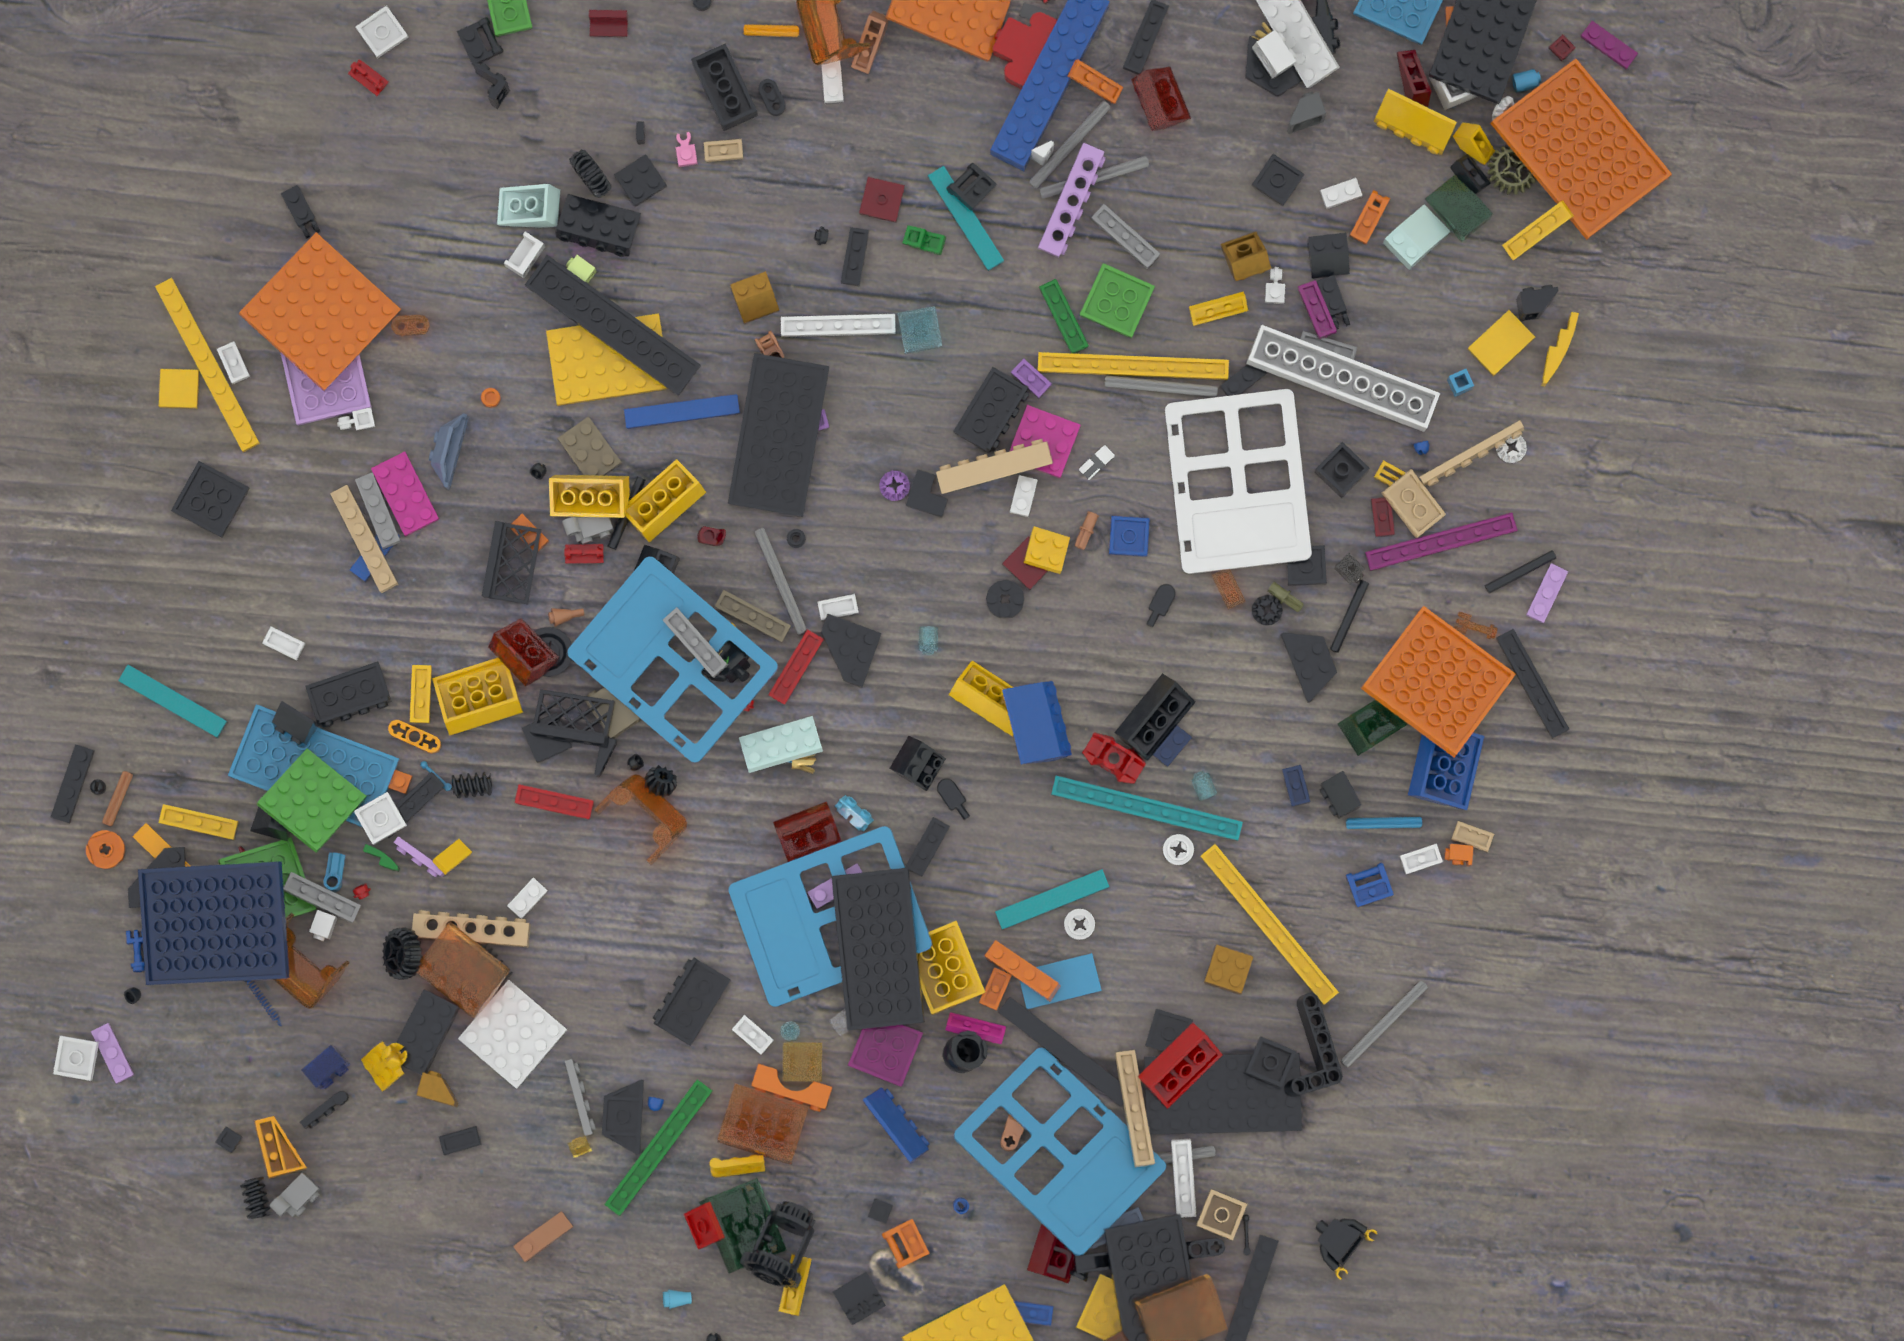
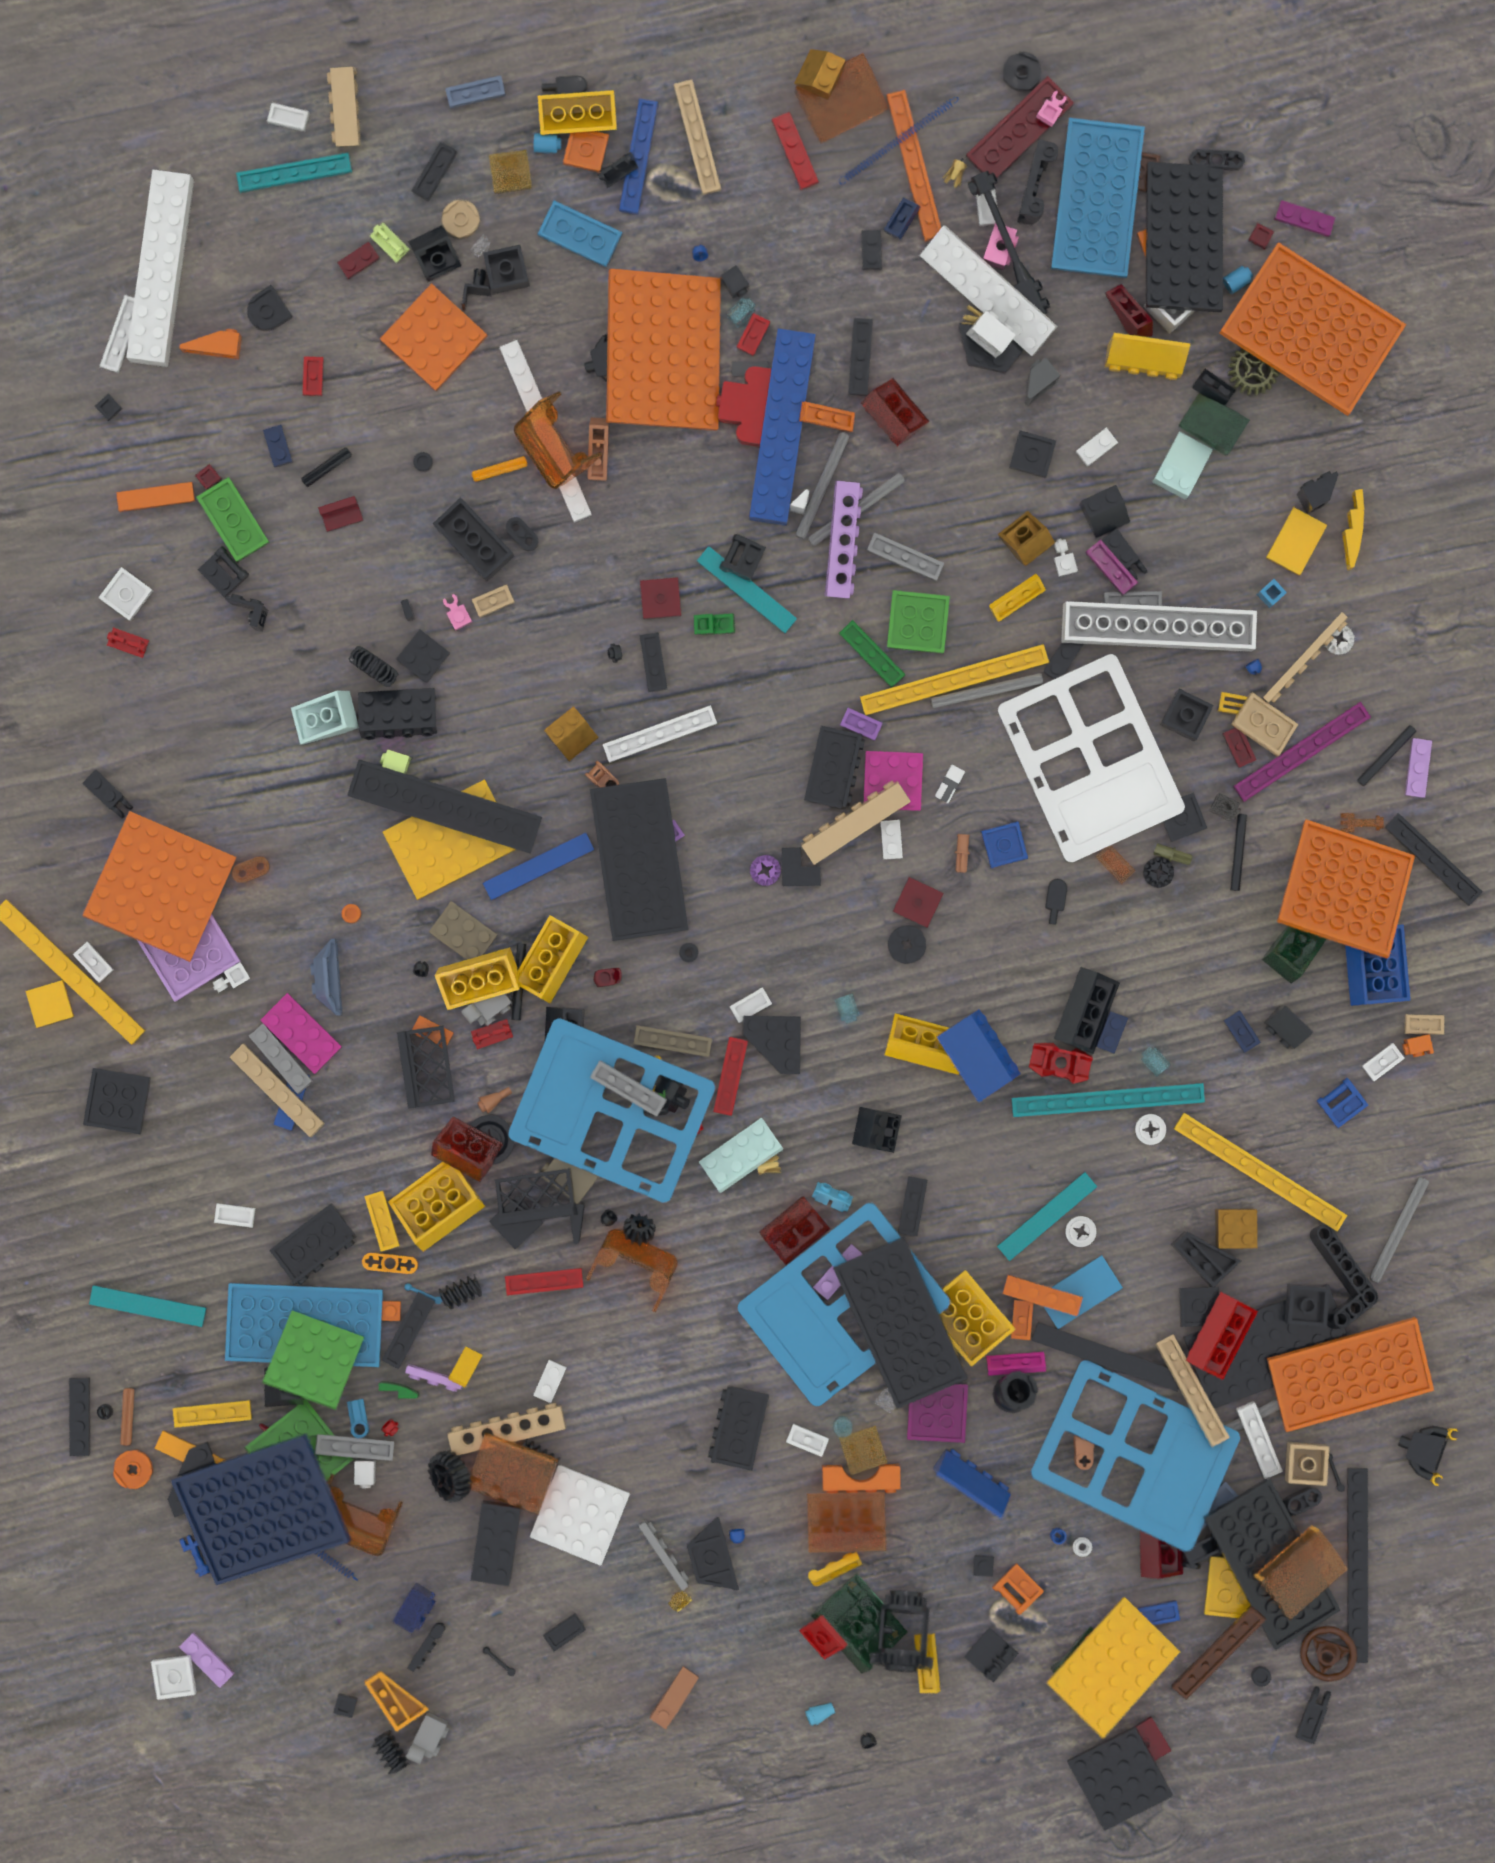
camera: 20 degrees left, 5 degrees up
(132, 995) = (207, 1599): black hinge -> none
(294, 723) = (271, 1291): black slope -> none
(380, 818) = (384, 1354): white plate -> none
(385, 1064) = (469, 1586): yellow plate -> none
(396, 1161) = (511, 1671): none -> black hinge
(436, 1089) = (527, 1594): pearl gold slope -> none
(525, 255) = (337, 765): white panel -> none
(658, 1147) = (754, 1576): green plate -> none
(780, 581) = (687, 997): light grey axle -> none
(919, 330) = (739, 713): clear light blue brick -> none
(952, 797) = (920, 1150): black piece -> none
(980, 1230) = (1082, 1553): none -> white plate
(1046, 550) = (931, 885): yellow plate -> none
(1188, 986) = (1204, 1258): none -> black wedge
(1291, 1144) = (1350, 1374): none -> orange plate
(1310, 661) = (1216, 908): black wing -> none
(1369, 218) = (1132, 462): orange plate -> none
(1388, 822) = (1336, 1038): dark azure axle -> none
(1474, 142) = (1208, 355): yellow slope -> none
(1505, 104) = (1225, 314): white gear -> none
(1538, 230) = (1298, 422): yellow plate -> none

